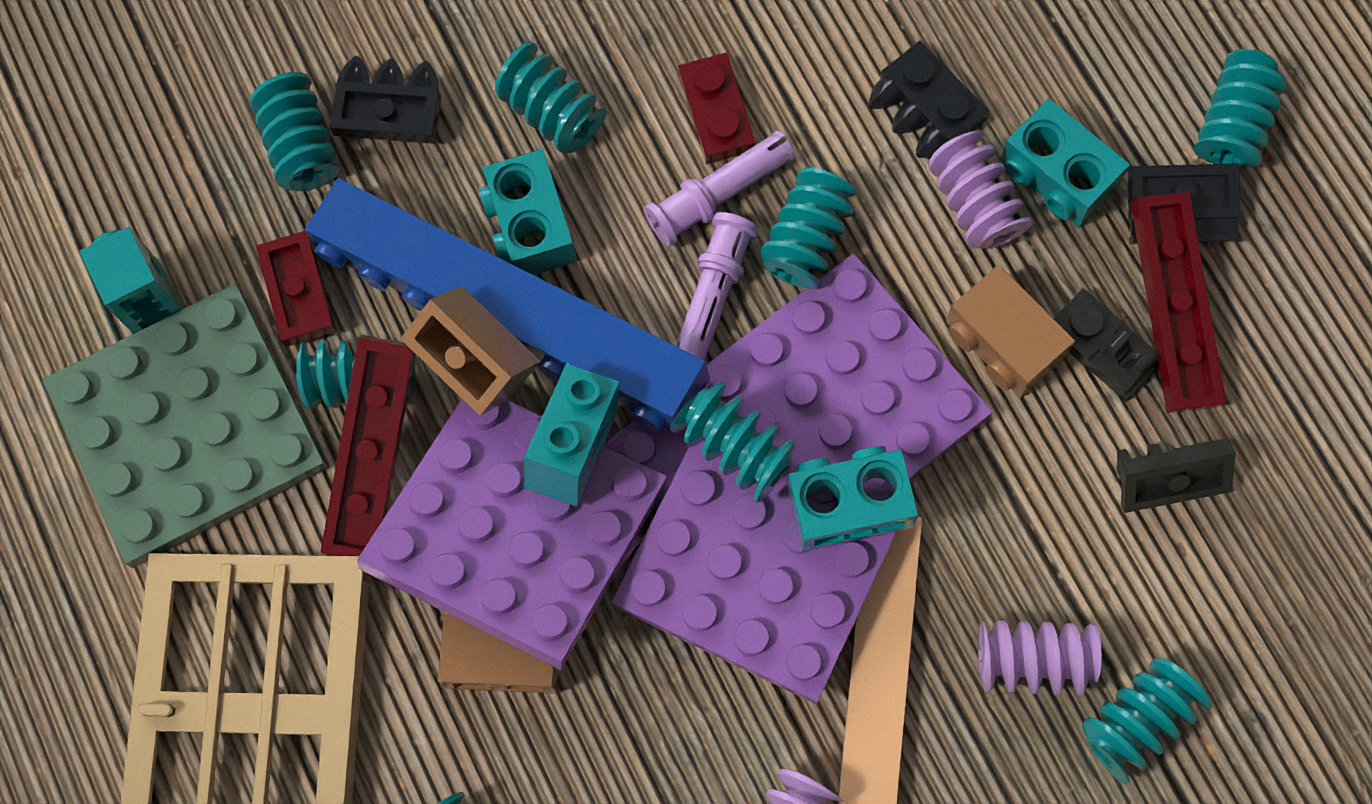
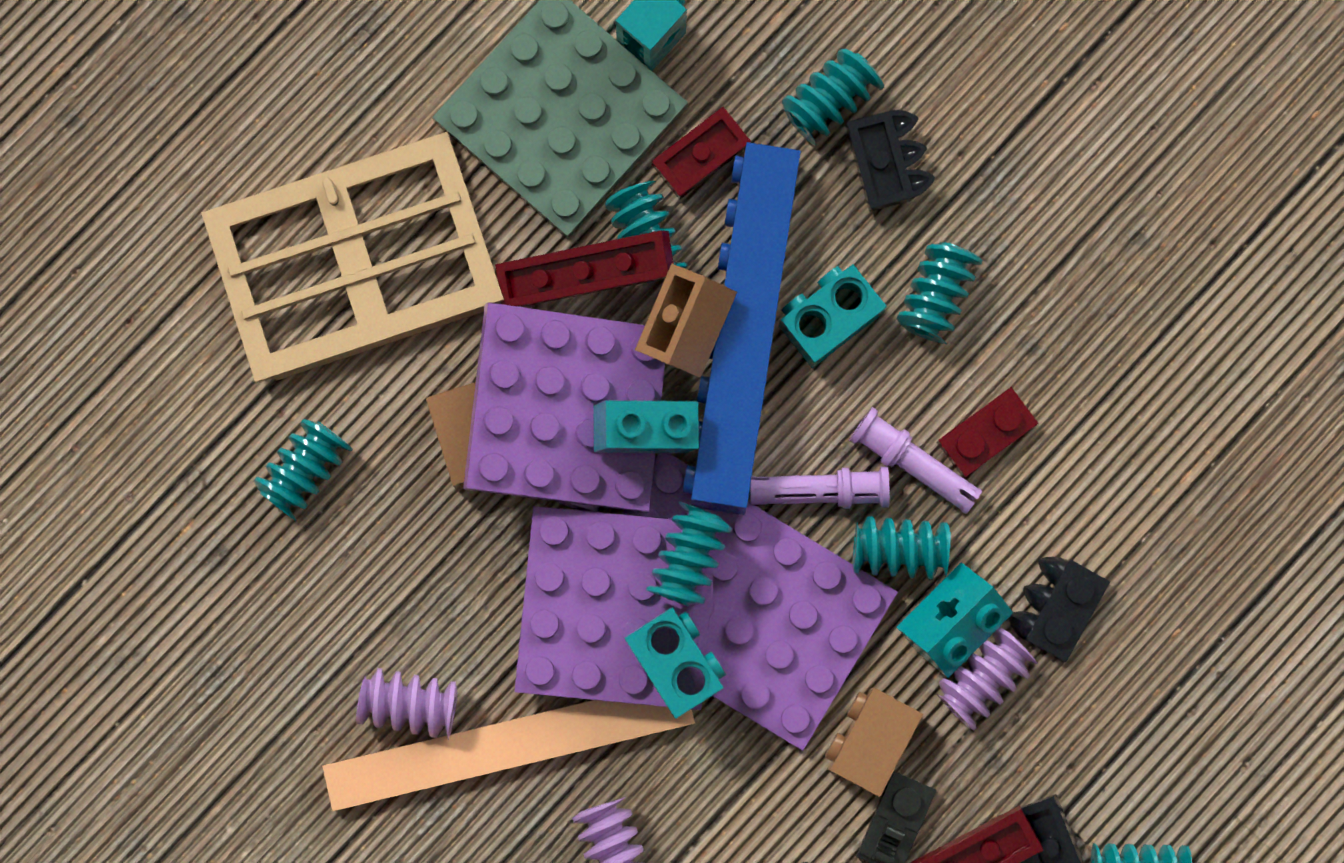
camera: 60 degrees right, 10 degrees up
(906, 199) = (955, 619): none -> teal brick
(1074, 154) = (1050, 743): teal brick -> none

